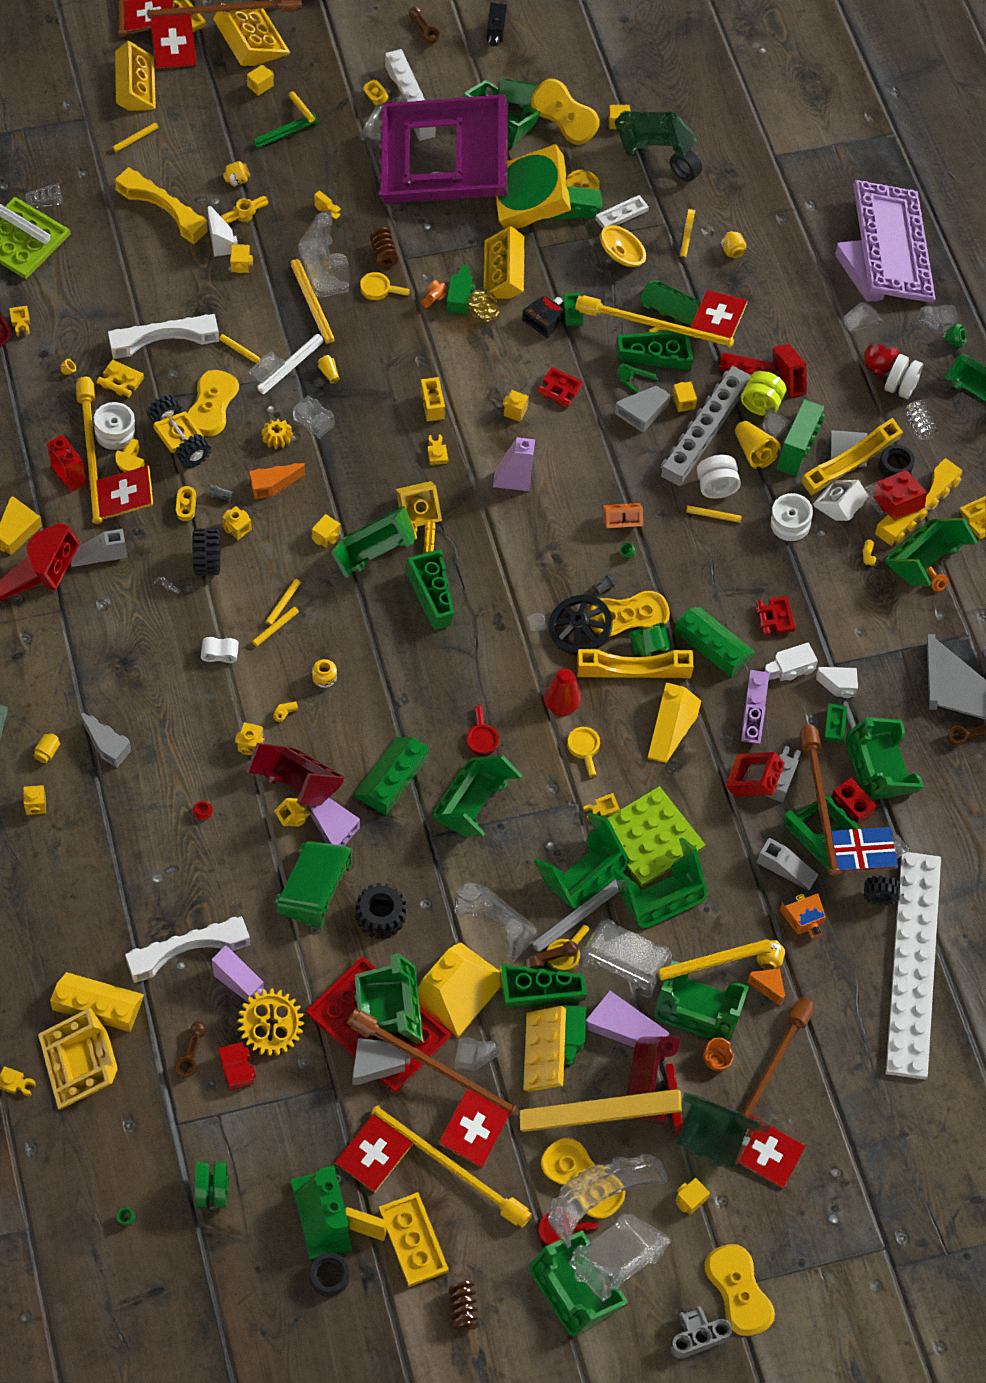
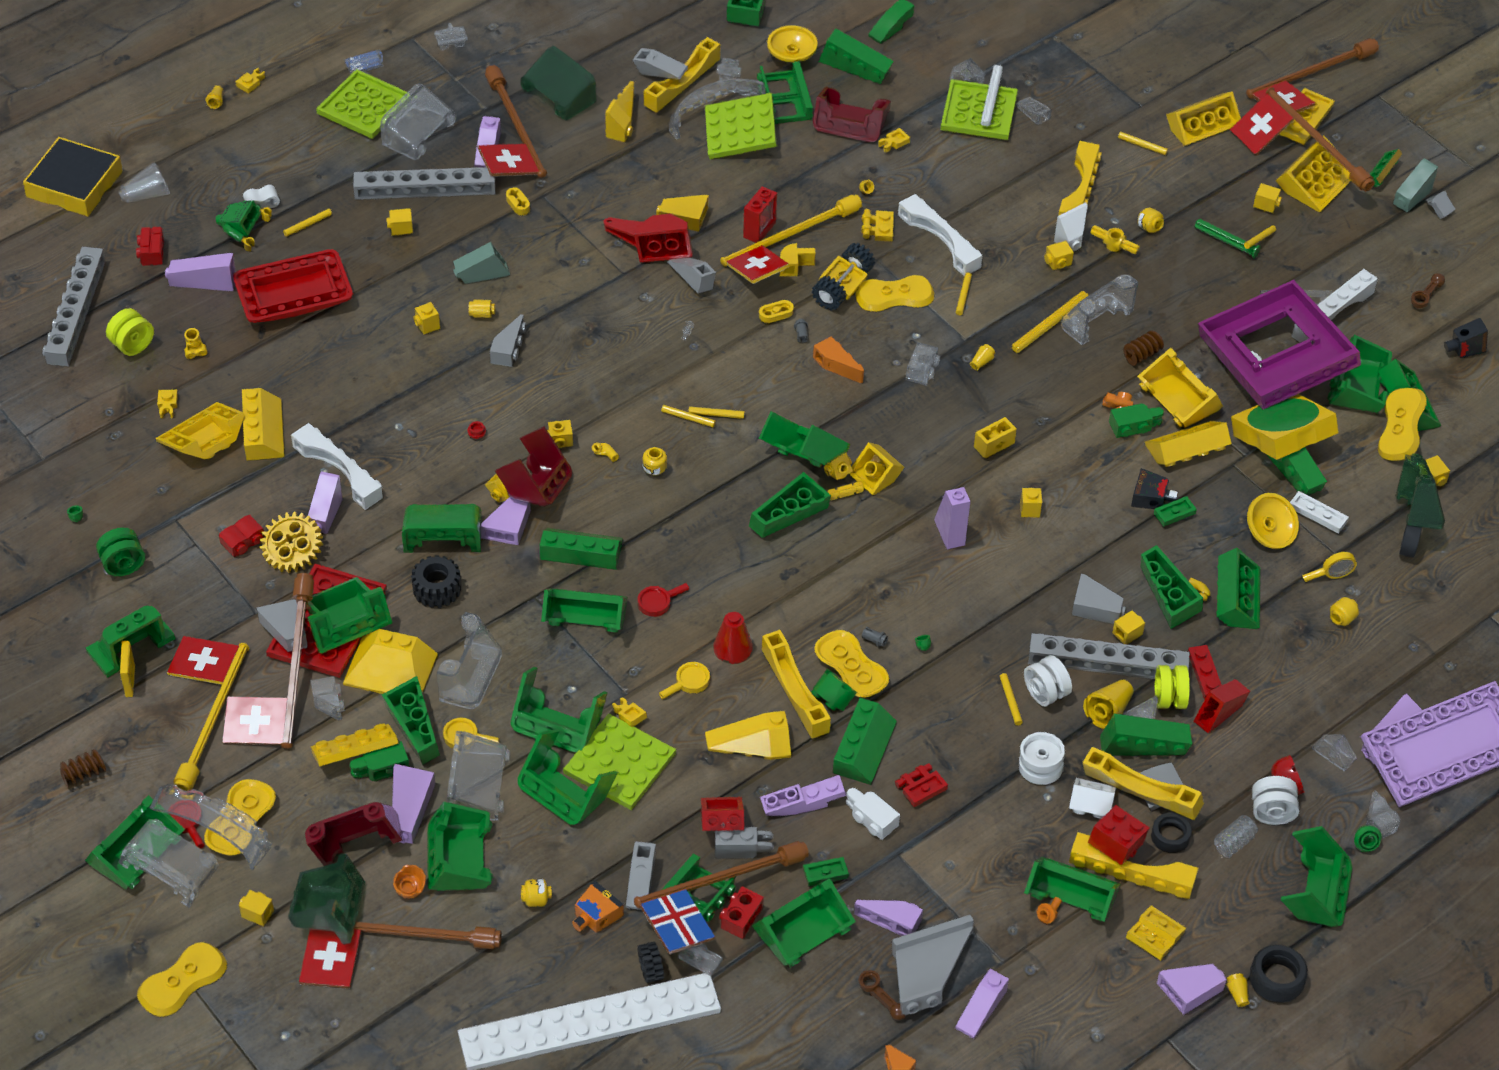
camera: 70 degrees right, 10 degrees down
(114, 425) = (823, 233): white wheel -> none
(197, 1030) = (264, 500): reddish brown piece -> none
(206, 551) = (727, 335): black tyre -> none
(219, 650) = (640, 385): white axle -> none
(236, 522) = (774, 349): yellow brick -> none
(266, 367) = (950, 311): clear hips -> none
(277, 433) = (887, 345): yellow gear -> none
(291, 363) = (971, 330): white axle -> none
(325, 204) = (1161, 290): yellow plate -> none
(326, 531) = (805, 413): yellow brick -> none
(329, 1258) = (74, 653): black tyre -> none
(375, 92) = (1317, 282): yellow plate -> none
(377, 286) = (1100, 361): yellow piece -> none
(413, 1239) = (131, 713): yellow plate -> none
(437, 452) = (945, 466): yellow plate -> none
(448, 244) = (1179, 390): none -> yellow windscreen
(483, 305) = (1128, 440): clear yellow tile -> none
(537, 617) = (802, 595): clear plate -> none
(561, 382) = (1083, 530): red plate -> none
(569, 949) = (439, 713): reddish brown piece -> none
(575, 917) = (498, 726): light grey axle -> none
(582, 180) = (1334, 471): yellow tile -> none
(582, 625) = (816, 625): black wheel -> none
(600, 1110) = (300, 796): yellow tile -> none
(623, 515) = (957, 622): orange brick -> none
(627, 372) = (1129, 577): green plant -> none
(672, 1085) = (357, 847): red tile -> none
(696, 1324) = (130, 951): light grey piece -> none
(714, 320) = (1216, 613): flag -> none
(714, 959) = (499, 838): yellow axle -> none
(769, 983) = (506, 903): orange slope -> none
(839, 681) = (876, 860): white slope -> none
(867, 550) = (1044, 838): yellow arm -> none
(904, 688) = (892, 915): none -> lavender slope

